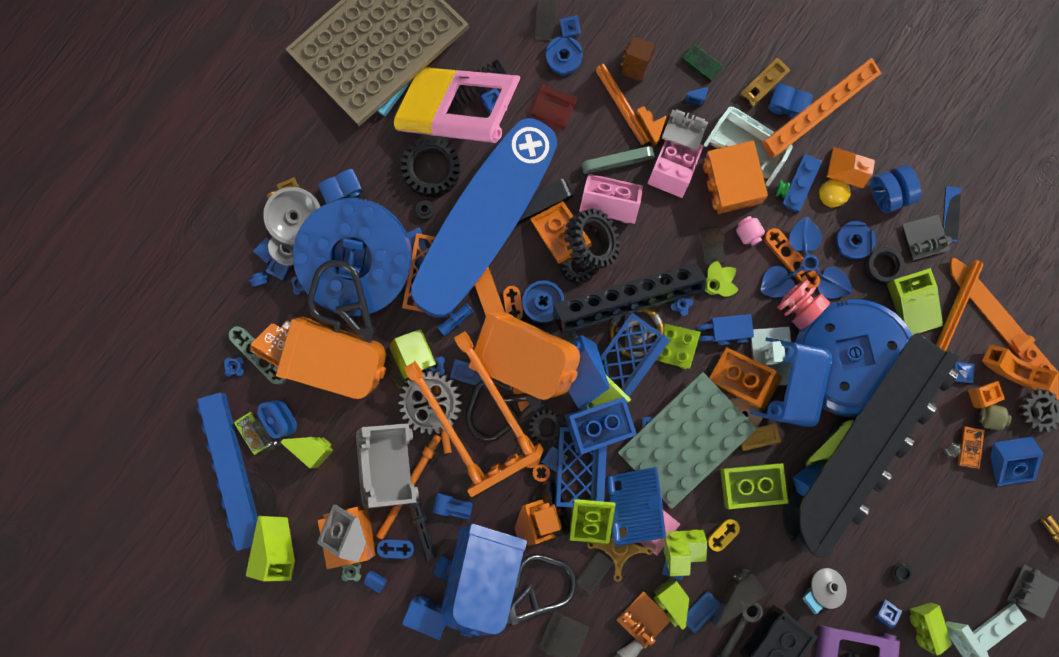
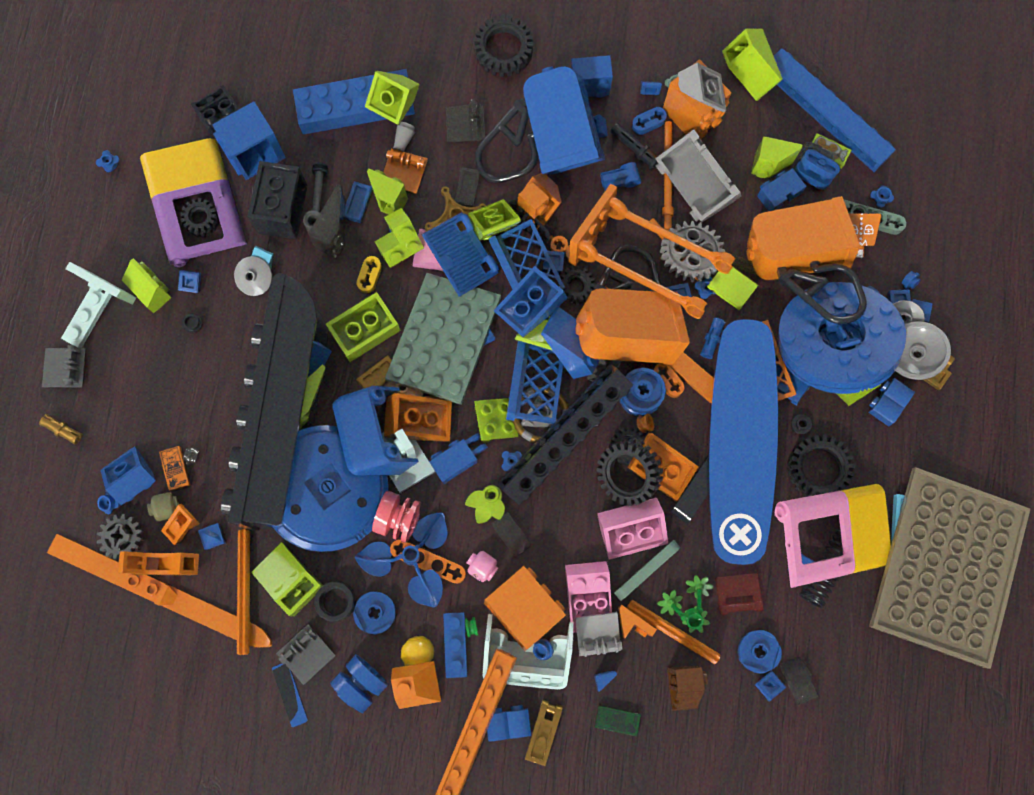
camera: 150 degrees right, 5 degrees down
(324, 418) = (785, 187): none -> blue brick
(554, 276) = (645, 423): none -> orange bush
(604, 101) = (694, 616): none -> plant
(733, 139) = (543, 649): none -> blue plate
(1044, 445) = (107, 503): none -> blue plate

